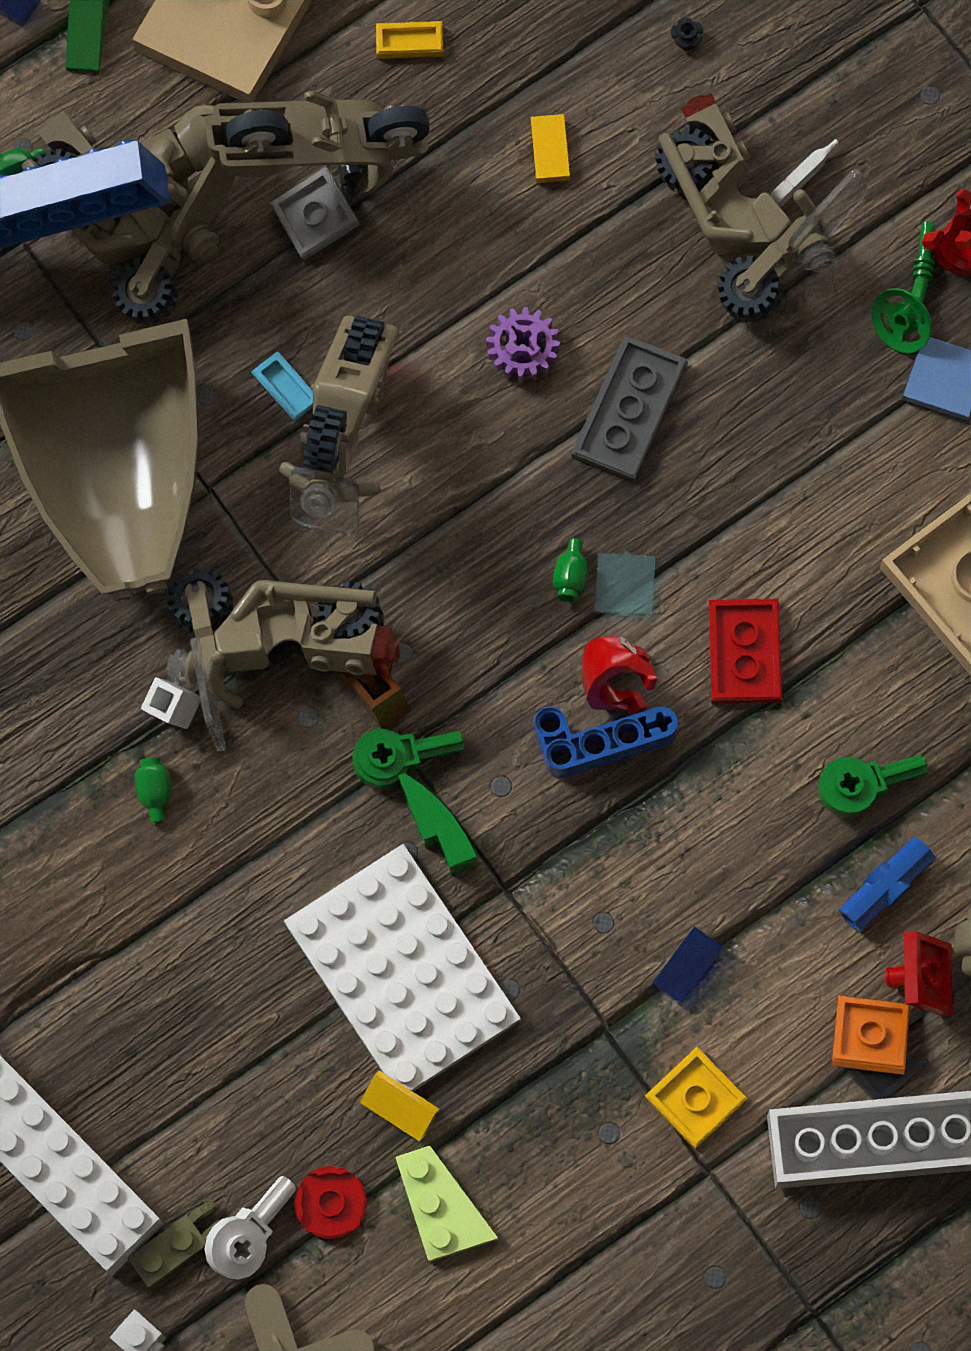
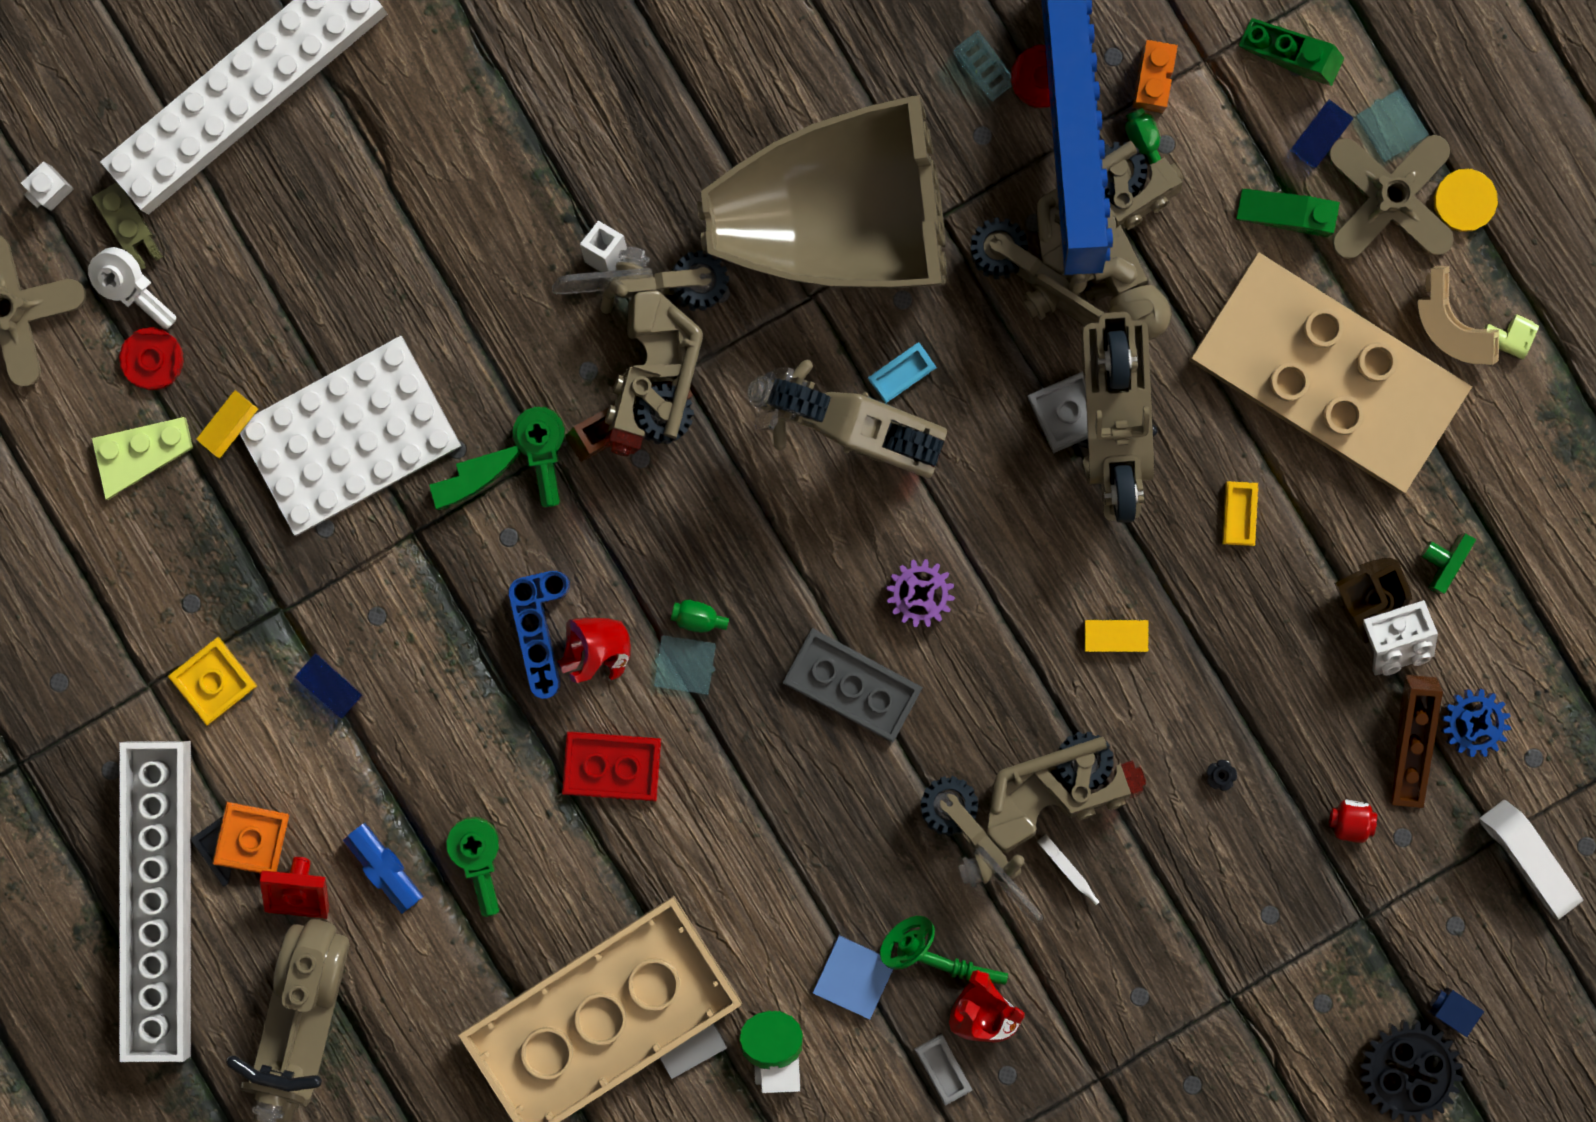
camera: 90 degrees right, 15 degrees up
(153, 787) = (533, 228): green plant -> none

